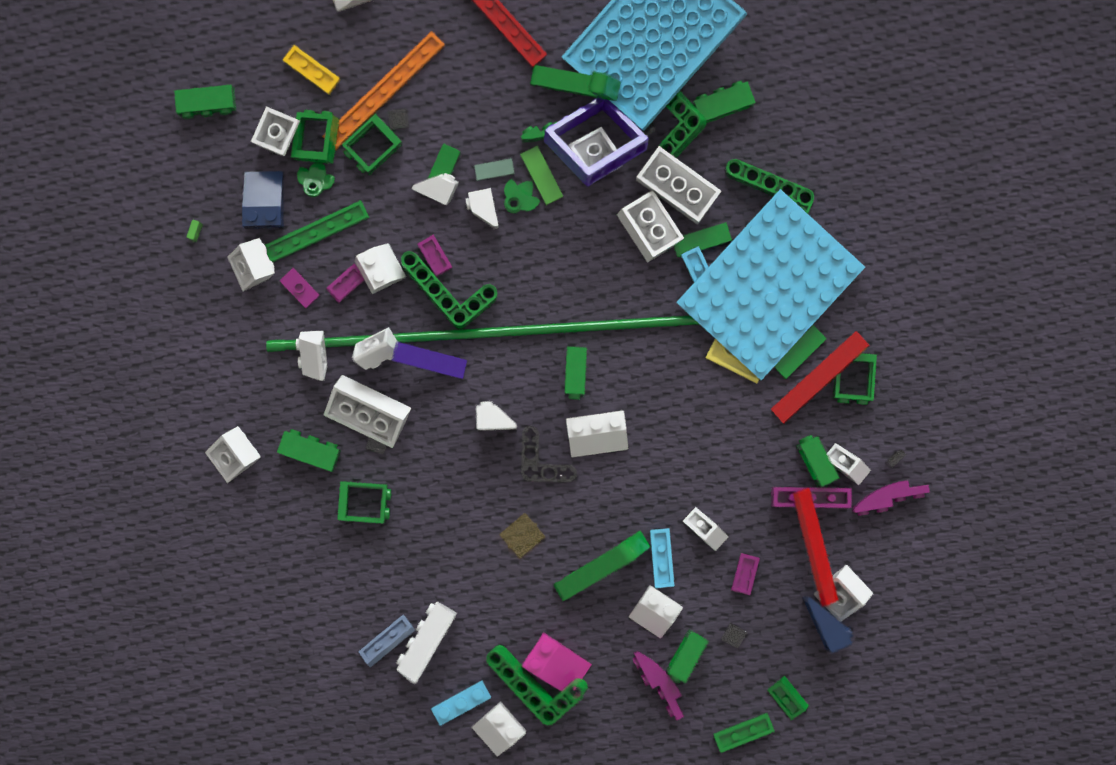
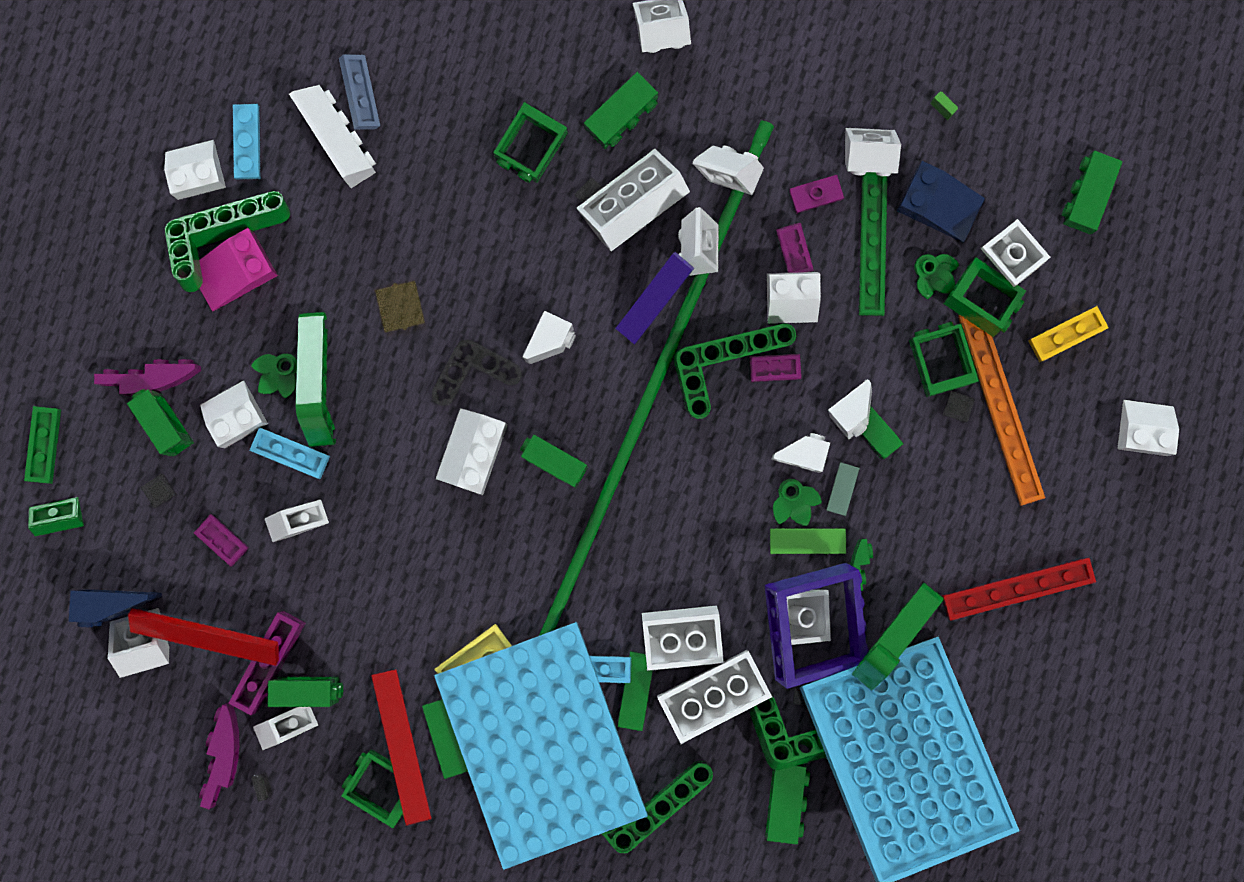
camera: 120 degrees right, 0 degrees up
(615, 596) = (273, 375): none -> green plate

